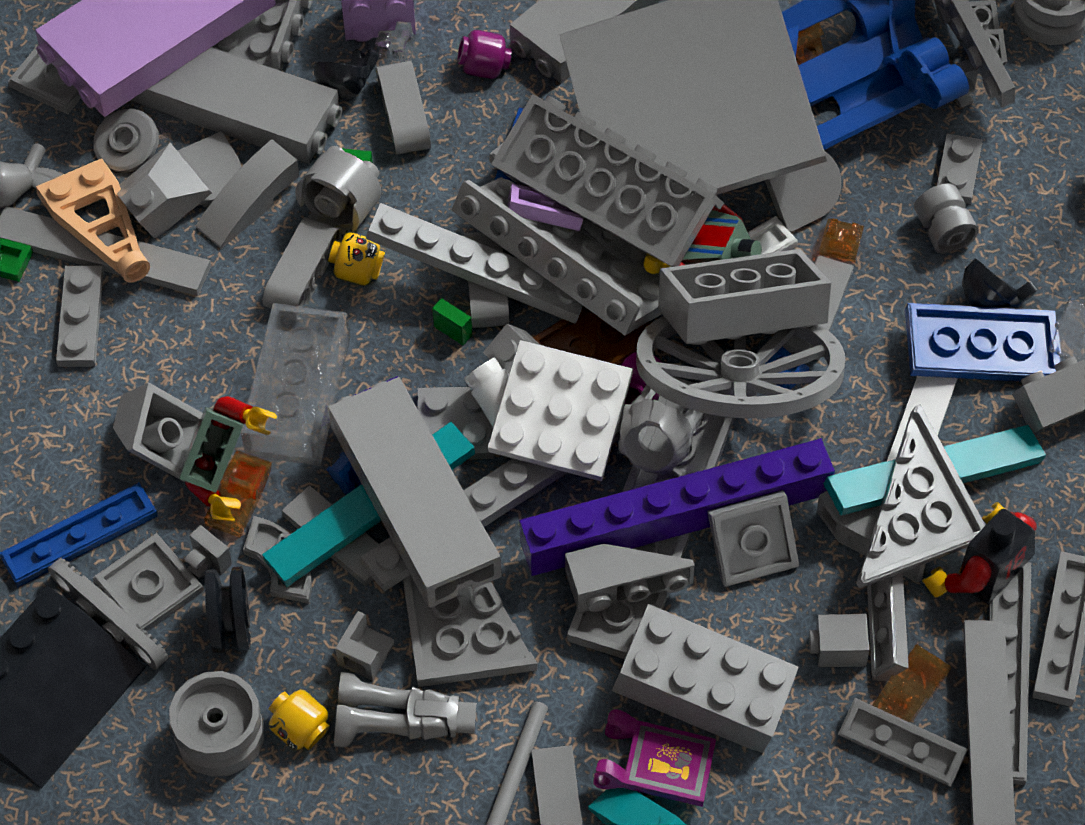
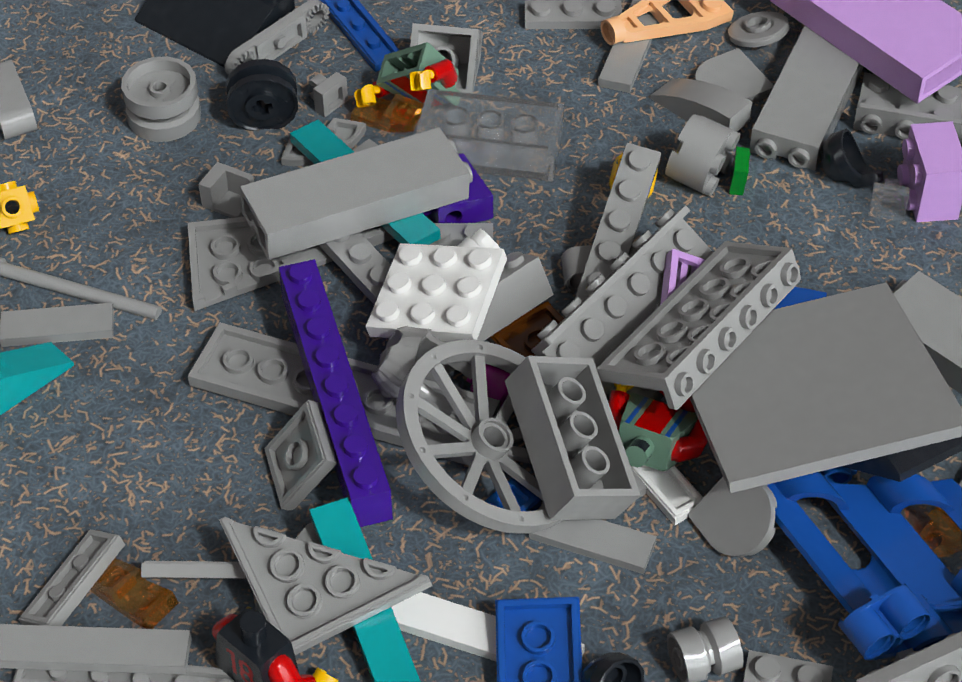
camera: 90 degrees right, 10 degrees down
(149, 582) = (310, 58): light grey tile -> none
(162, 191) = (696, 46): light grey slope -> none
(298, 719) = (162, 152): yellow head -> none
(301, 264) = (608, 134): light grey beam -> none
(404, 107) = (814, 205): light grey beam -> none
(426, 713) = (157, 228): light grey piece -> none
(452, 321) = (562, 239): green tile -> none
(483, 54) = (887, 260): magenta head -> none
(618, 574) = (267, 345): light grey slope -> none
(659, 761) = (80, 393): magenta flag -> none
(705, 679) = (150, 413): light grey brick -> none
(840, 640) = (186, 530): light grey brick -> none
(841, 240) = (680, 560): clear orange tile -> none

